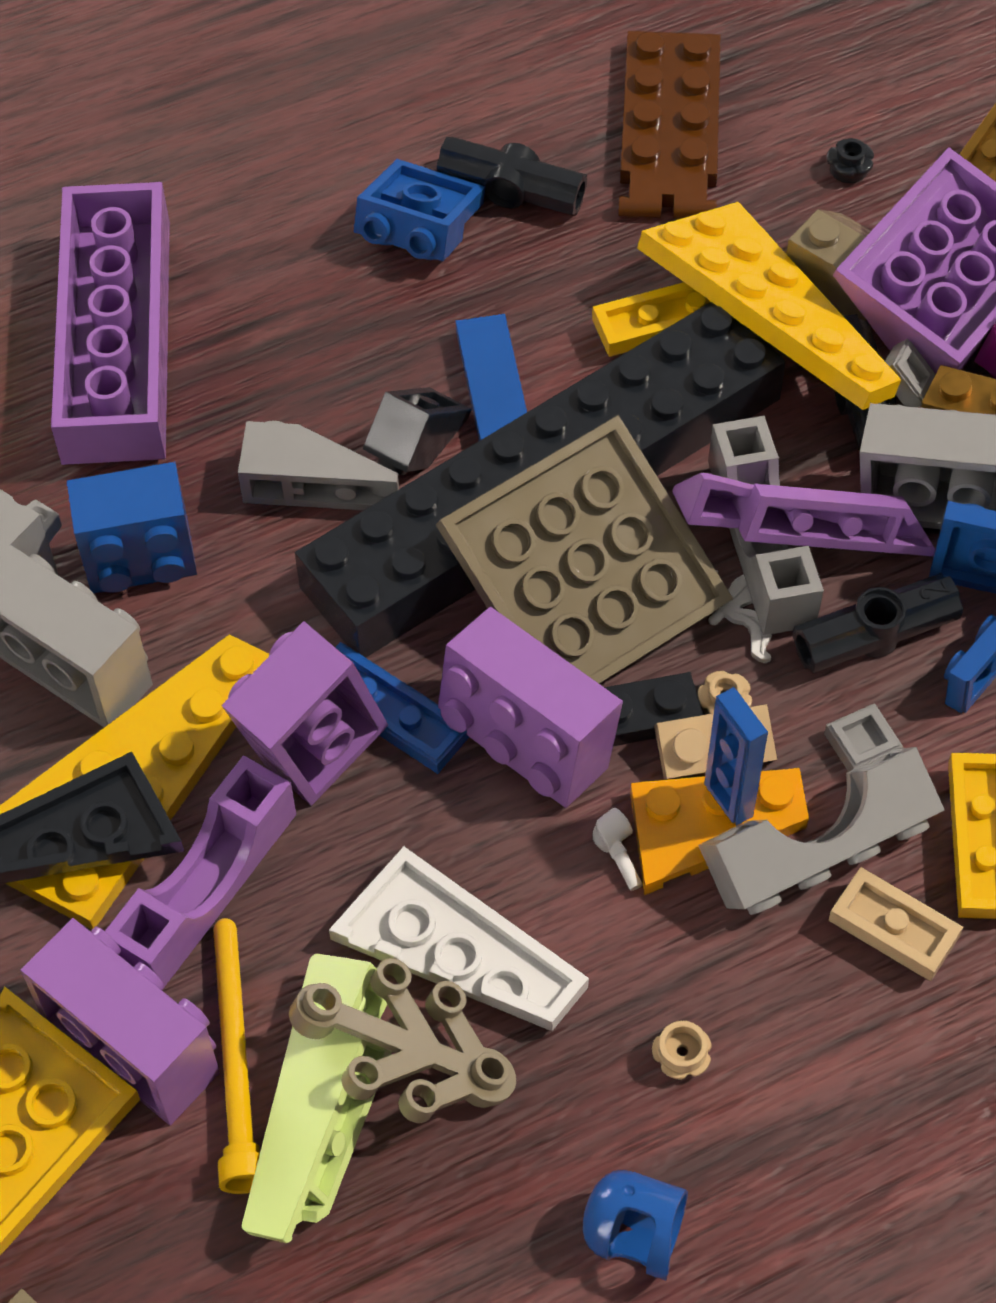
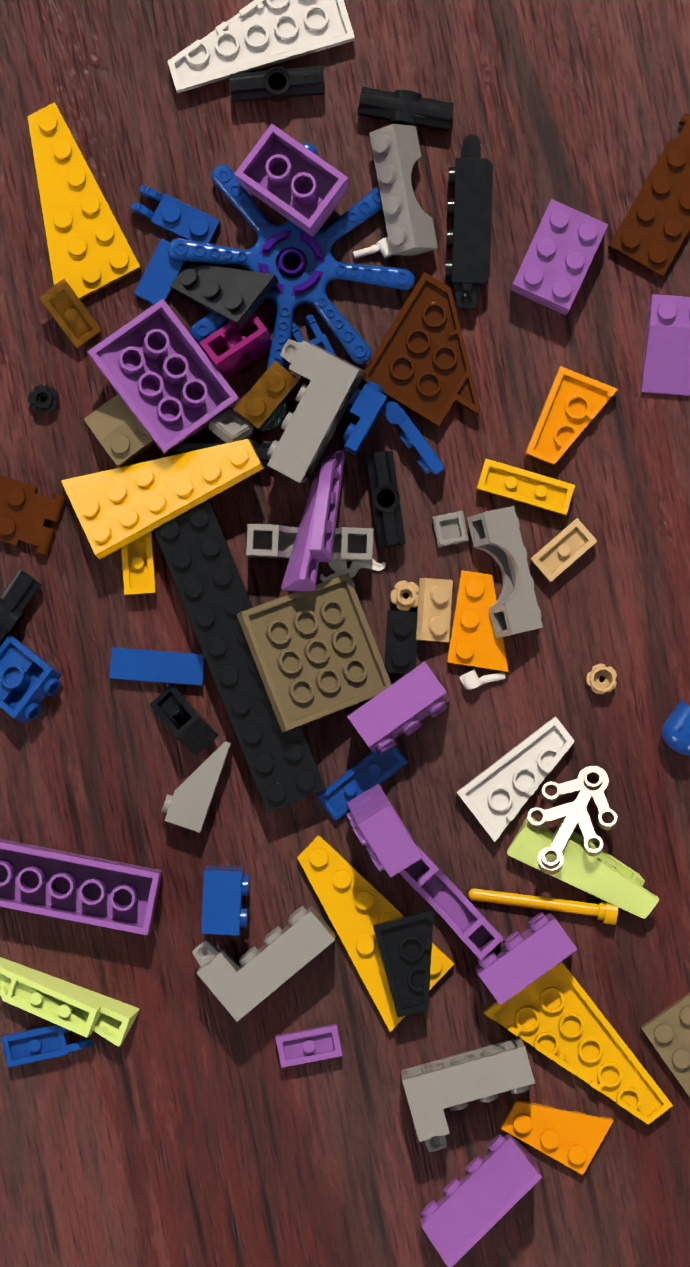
camera: 75 degrees left, 30 degrees up
(735, 756) = (476, 613): blue tile -> none

